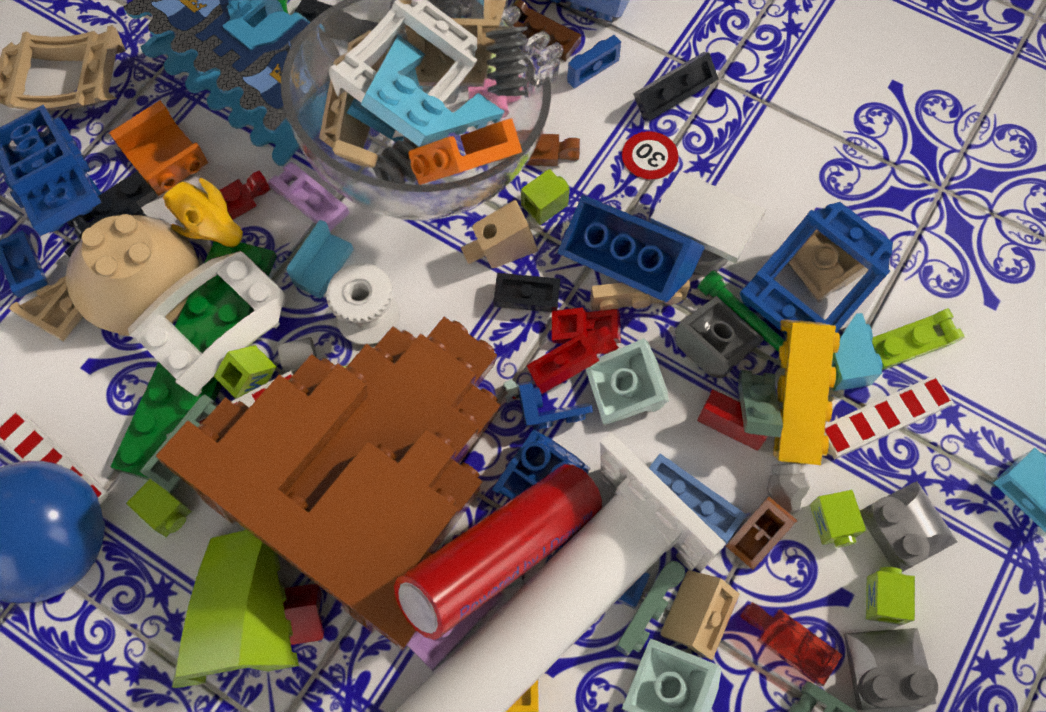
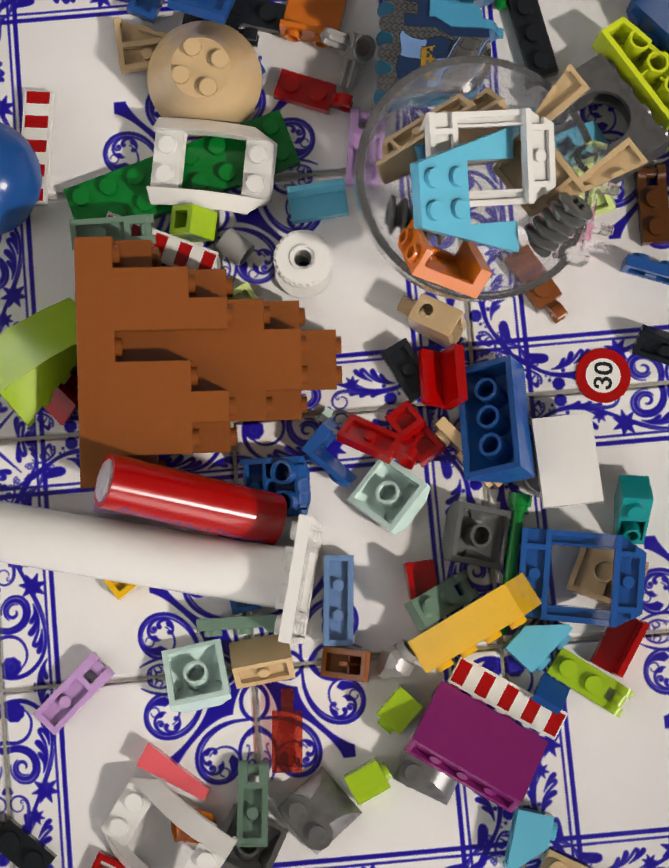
camera: 50 degrees right, 15 degrees up
(159, 508) = (58, 248): lime brick -> none
(202, 213) = (282, 90): yellow animal -> none
(224, 145) = (353, 48): none -> light grey axle
(355, 154) = (381, 184): tan tile -> none
(545, 196) = (498, 324): lime brick -> none
(558, 263) = (443, 377): none -> red panel
(782, 198) = (632, 507): none -> teal slope
(902, 293) = (619, 646): none -> red panel
(907, 376) = (550, 693): none -> blue tile
(925, 468) = (477, 746): none -> magenta panel

